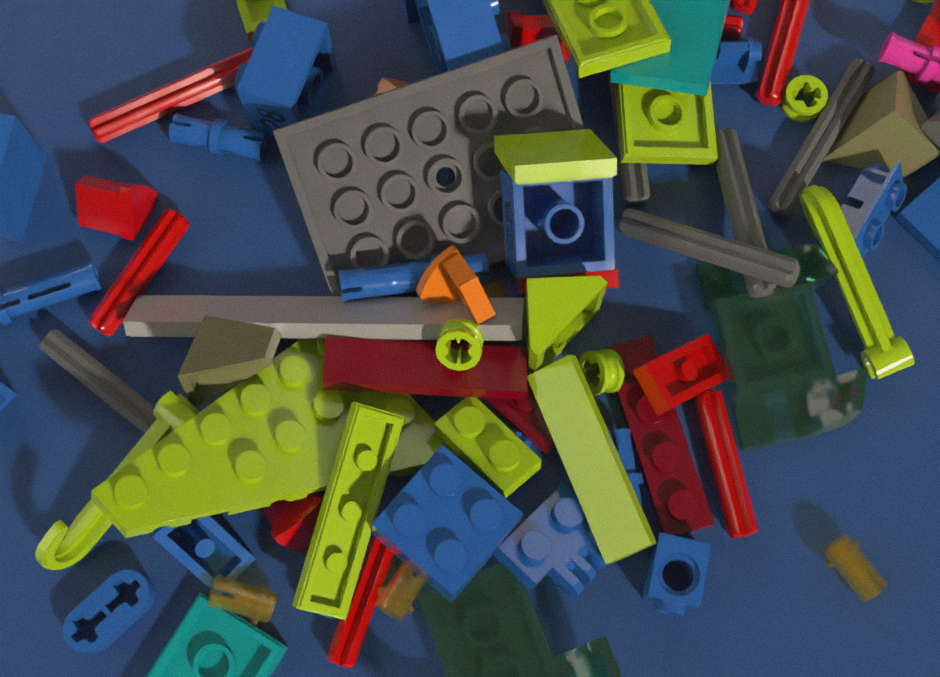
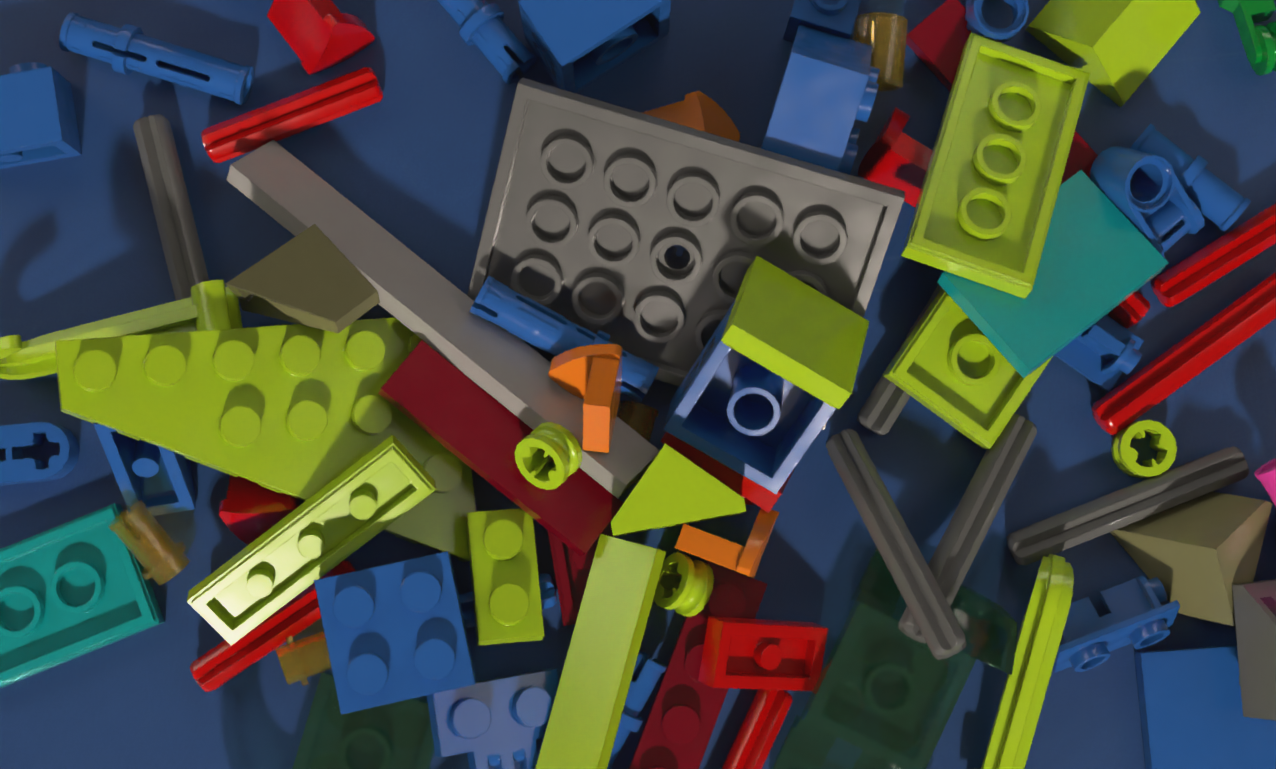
camera: 30 degrees right, 10 degrees up
(612, 330) = (727, 553): none -> orange tile

